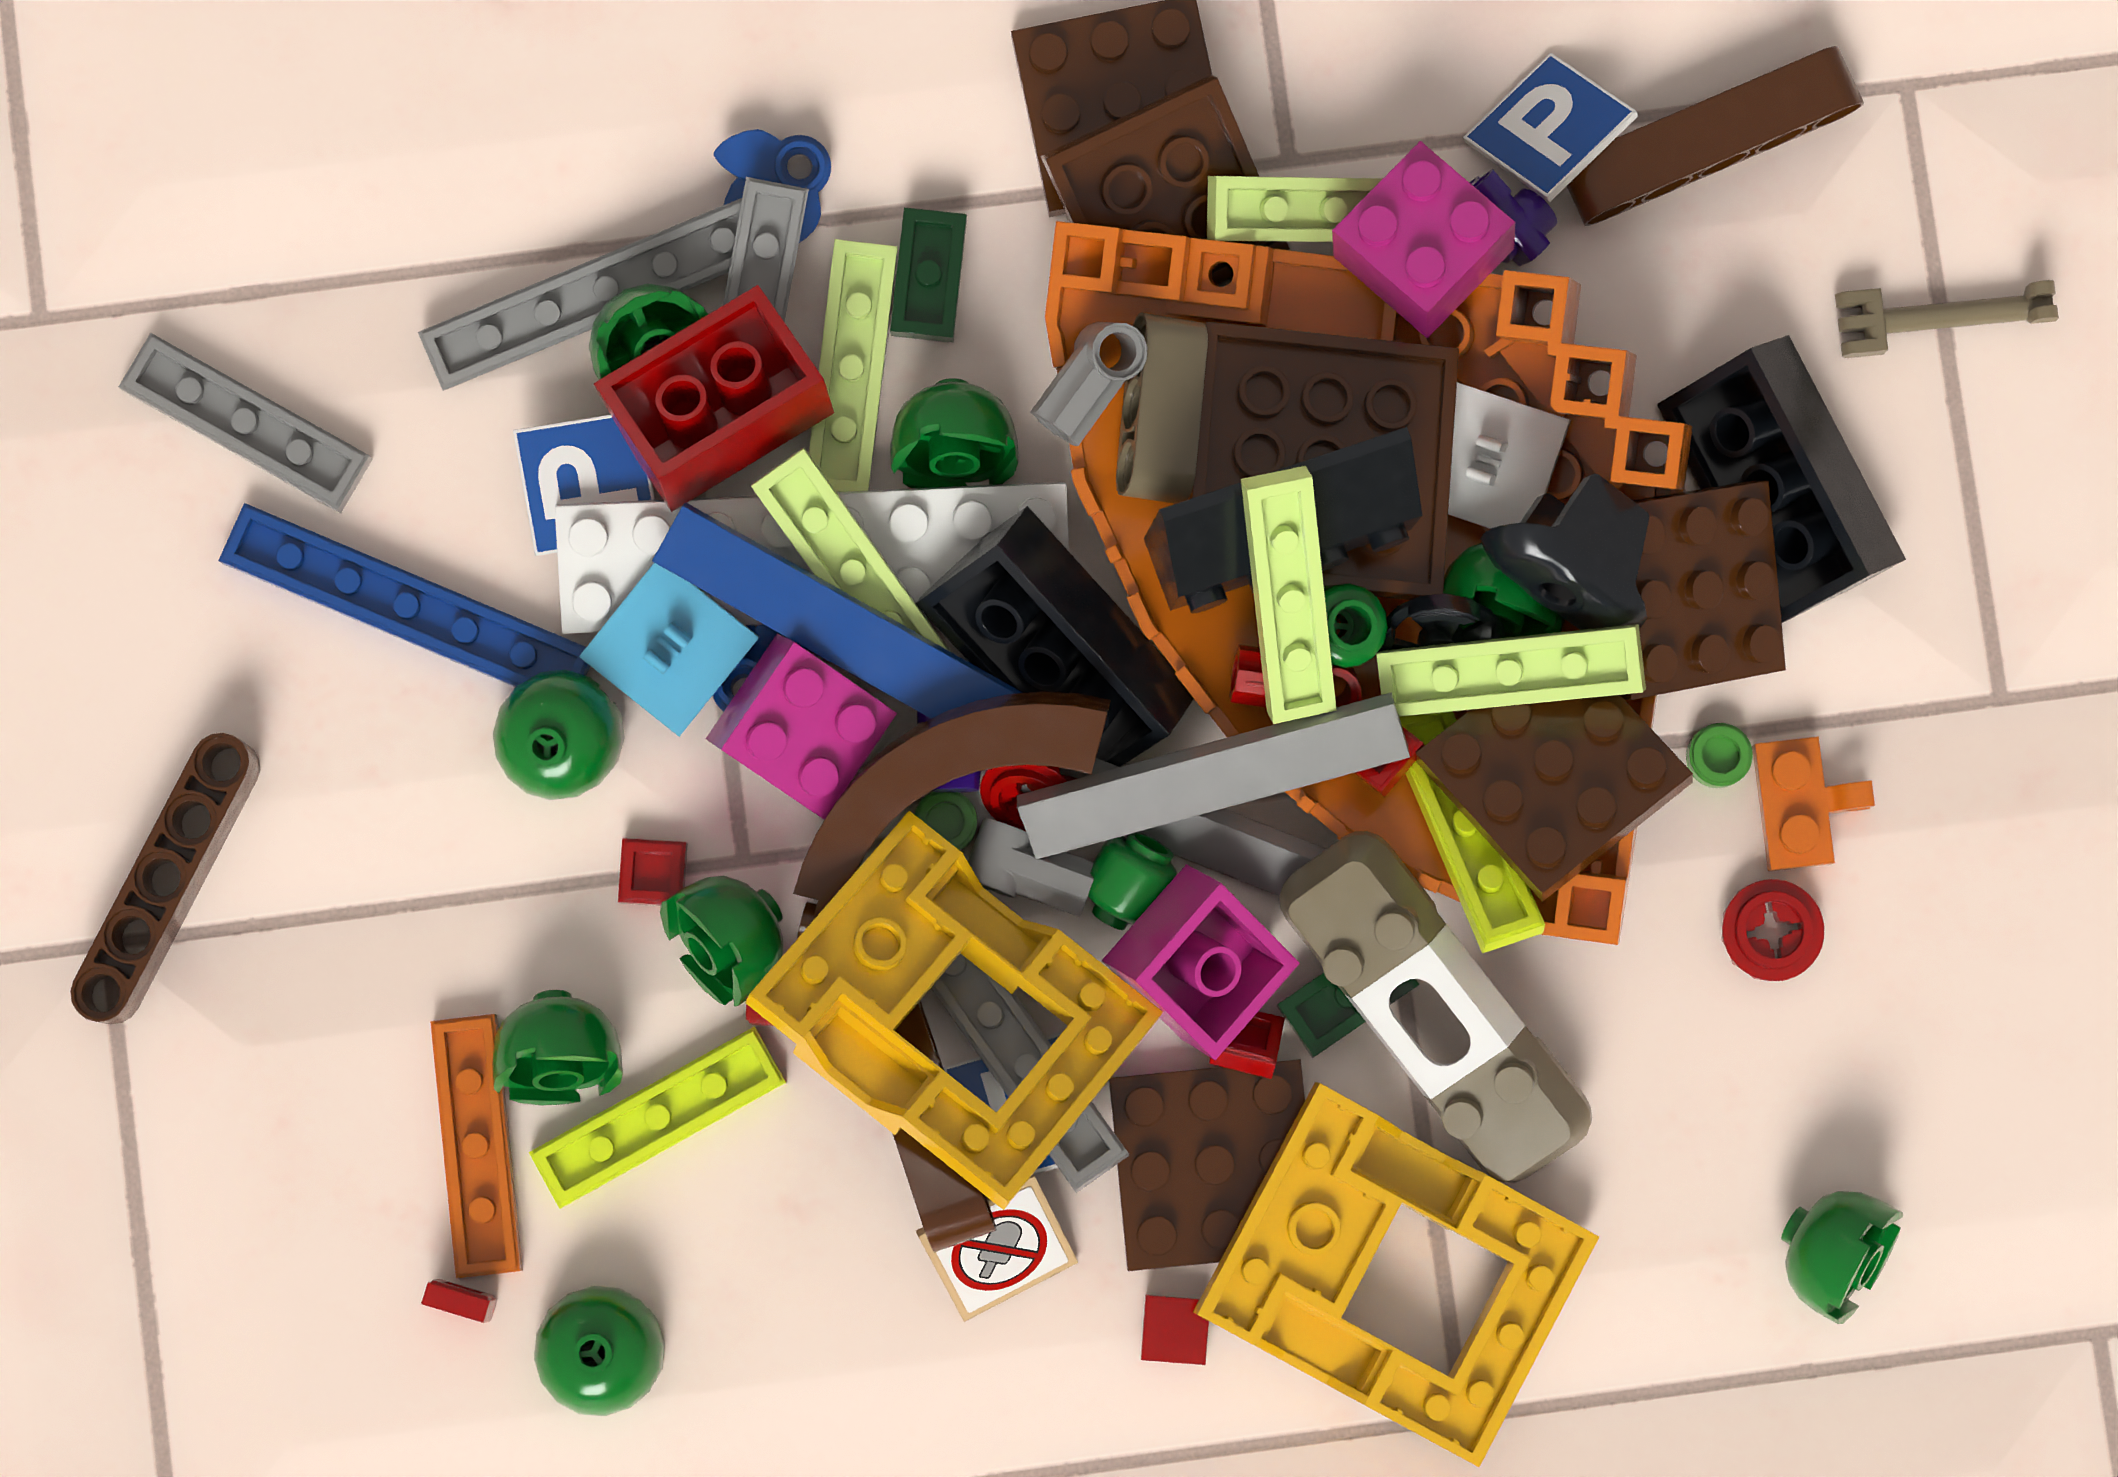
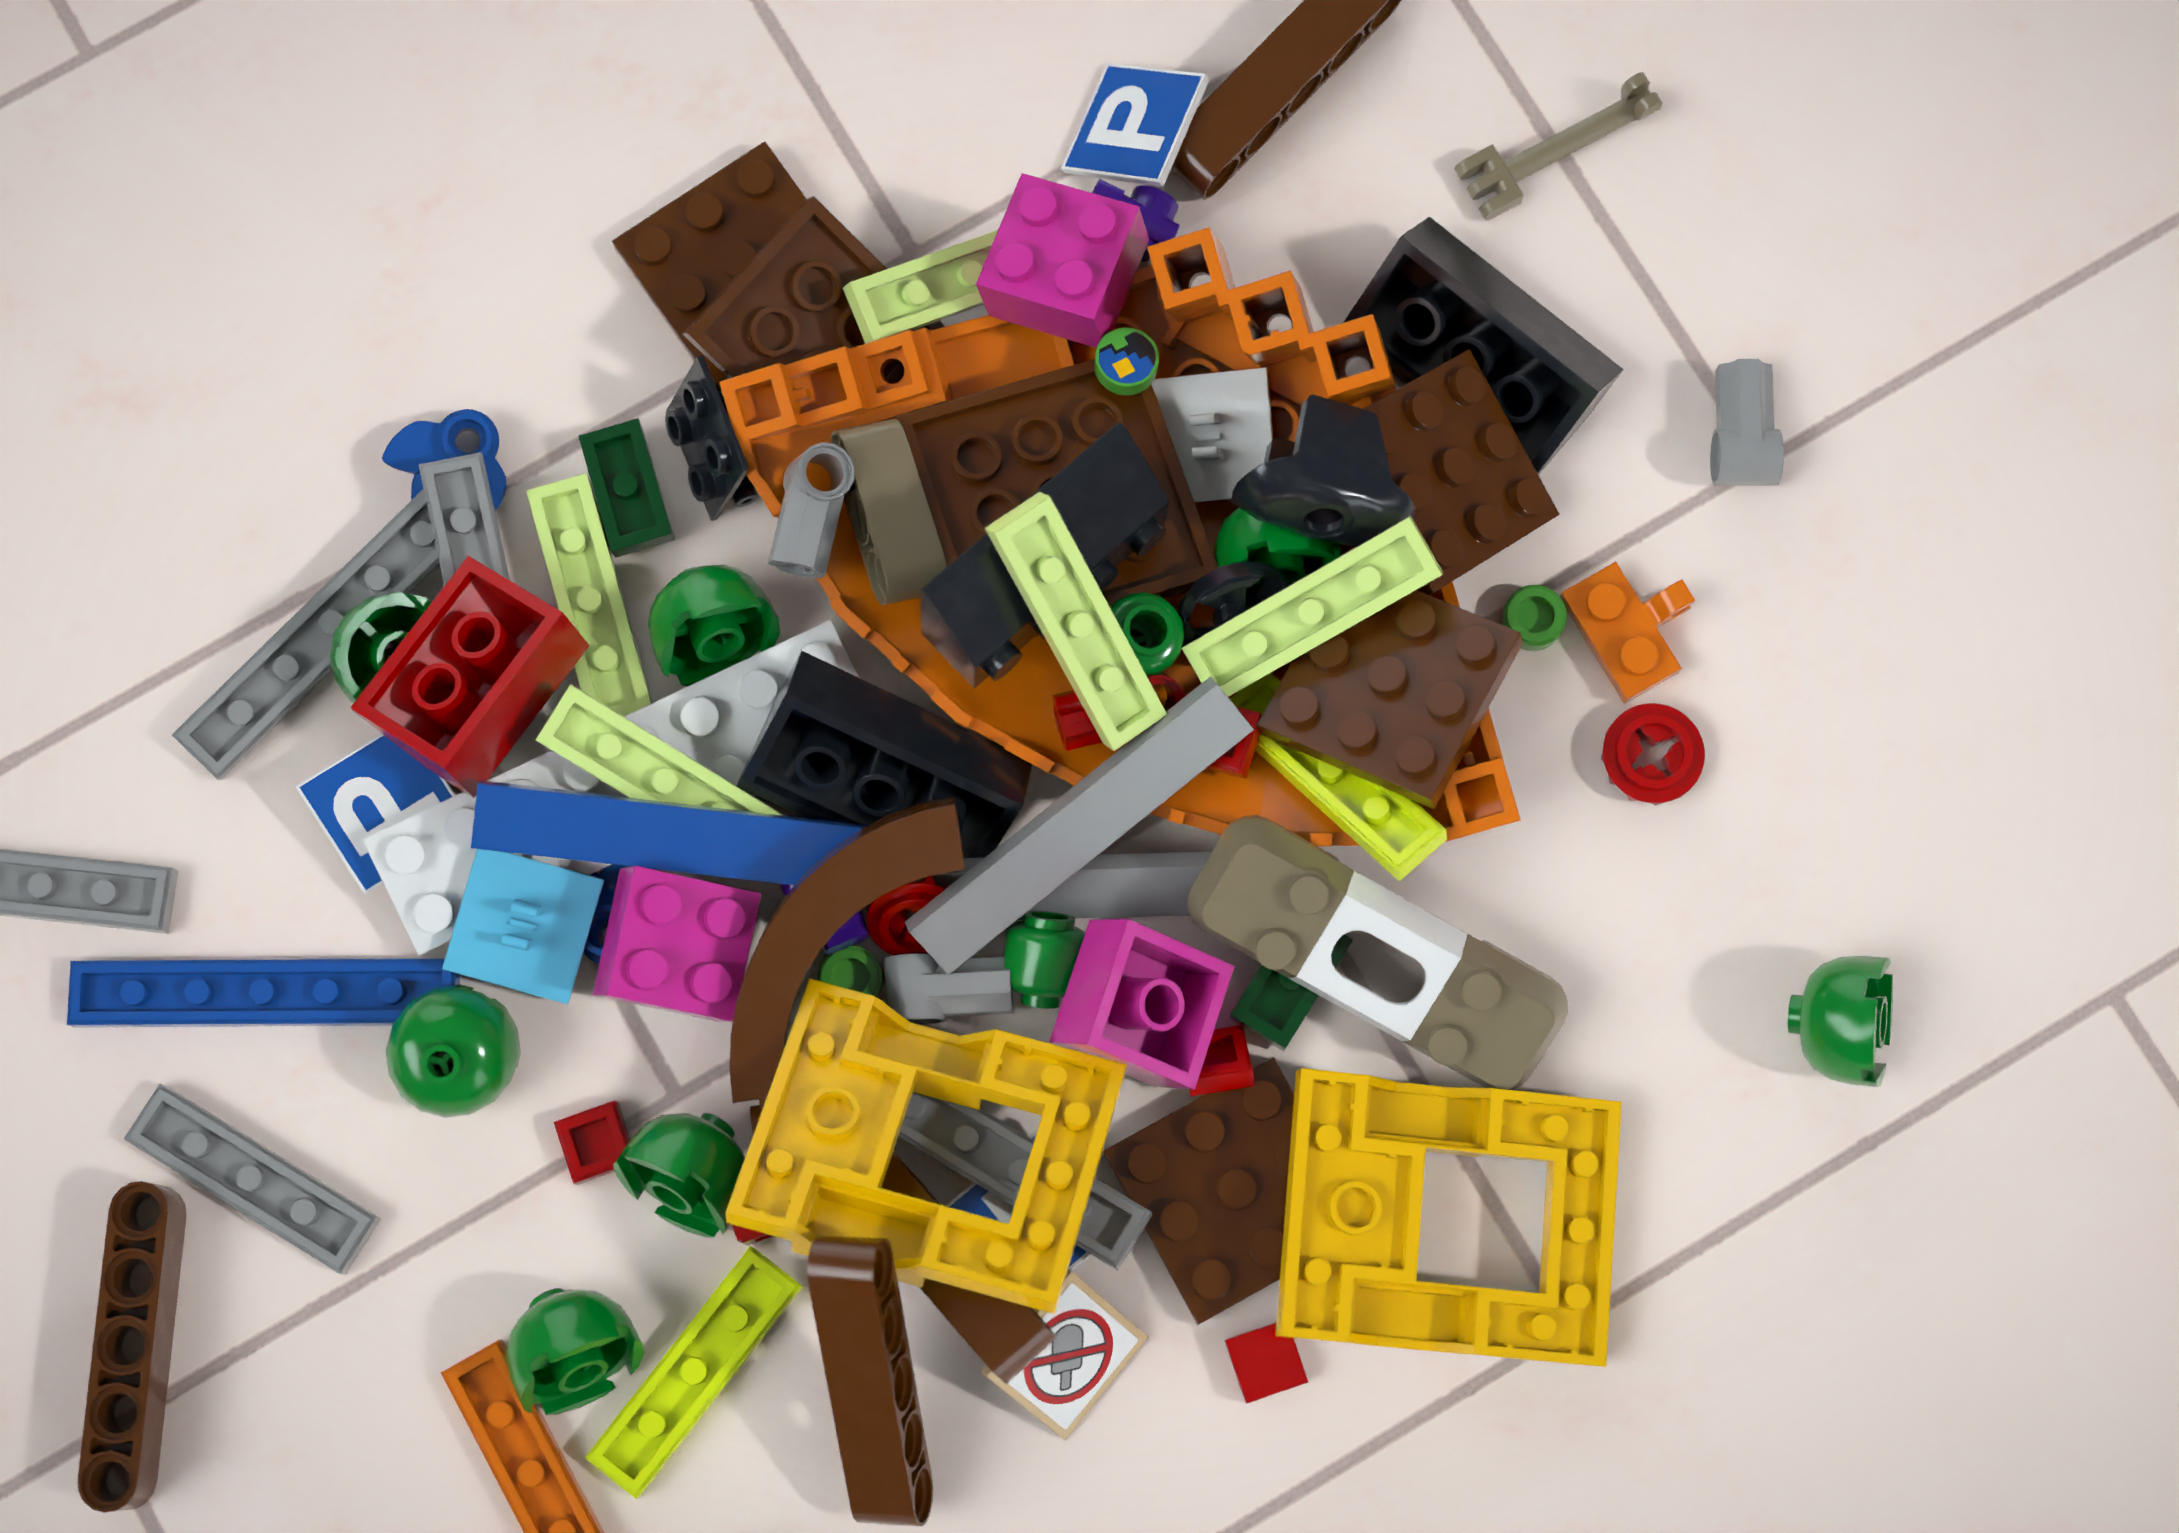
camera: 15 degrees left, 5 degrees down
(330, 772) = (252, 1179): none -> light grey tile
(814, 1196) = (870, 1379): none -> reddish brown beam
(1022, 253) = (703, 430): none -> black hinge
(1441, 359) = (1126, 361): none -> tile
(1991, 676) = (1745, 444): none -> light grey piece

